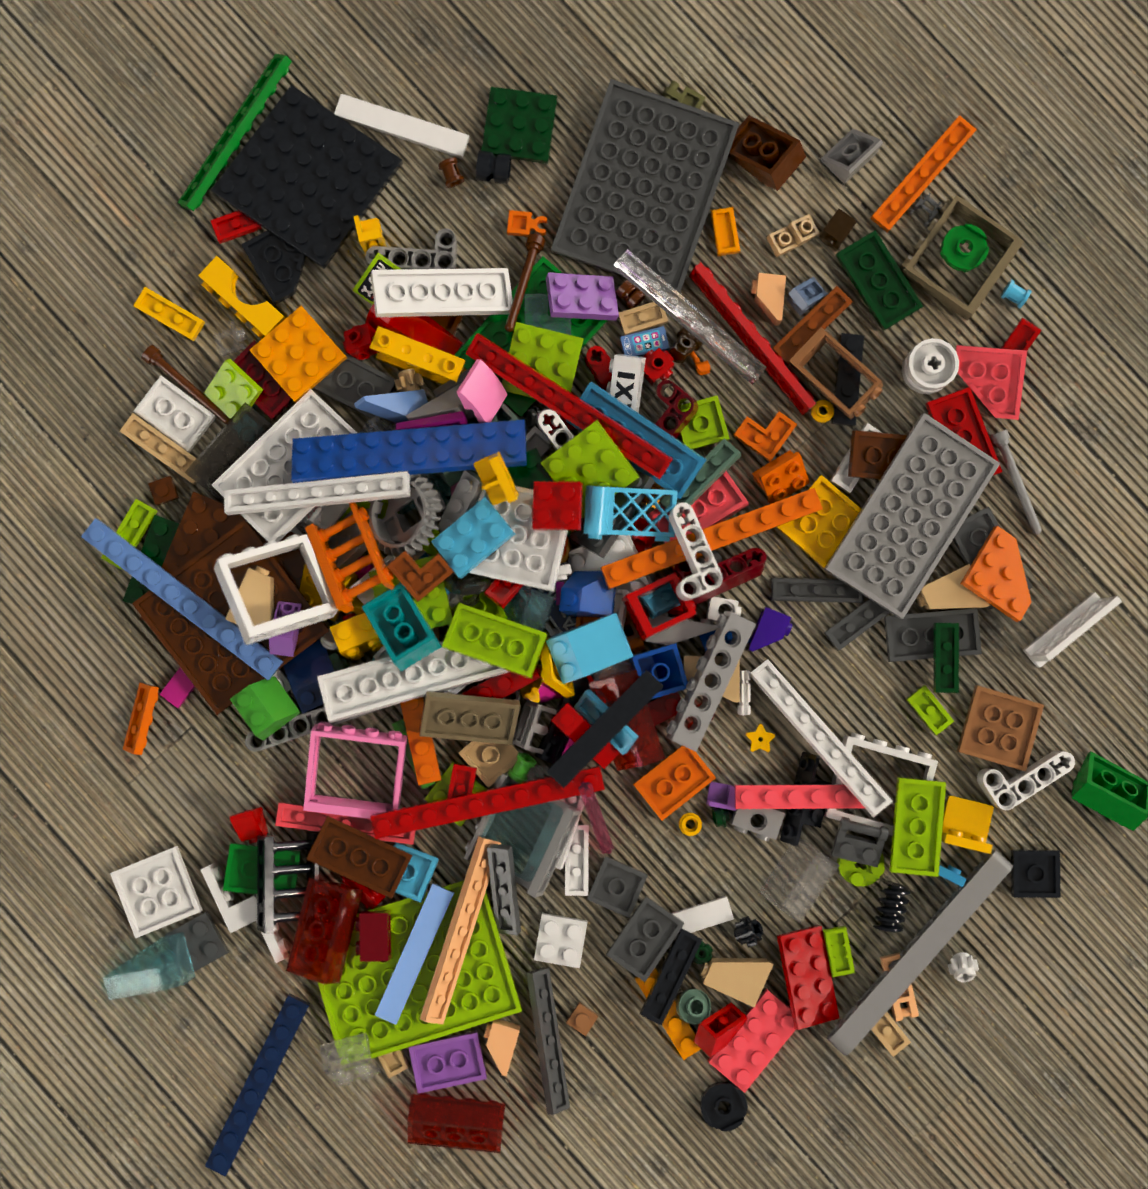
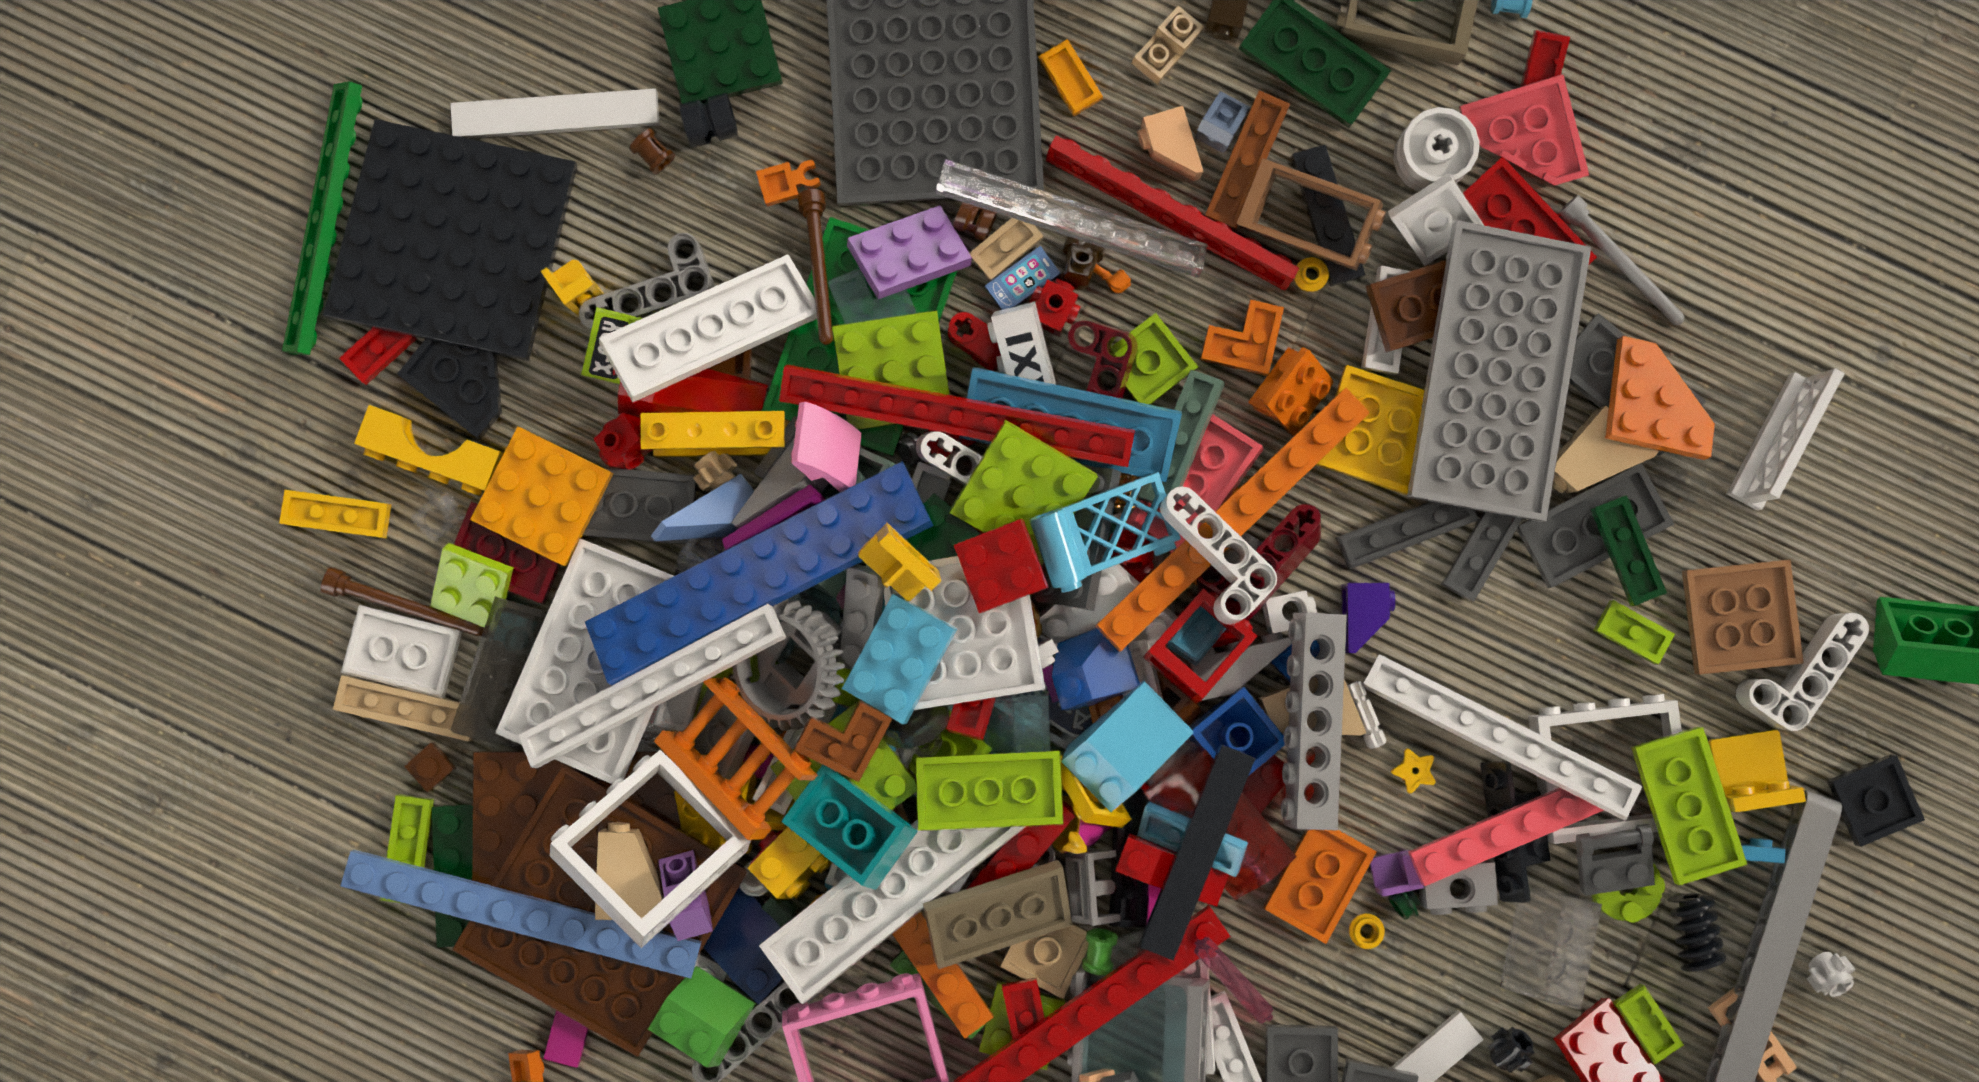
camera: 20 degrees left, 0 degrees up
(908, 404) = (1429, 215): none -> white plate

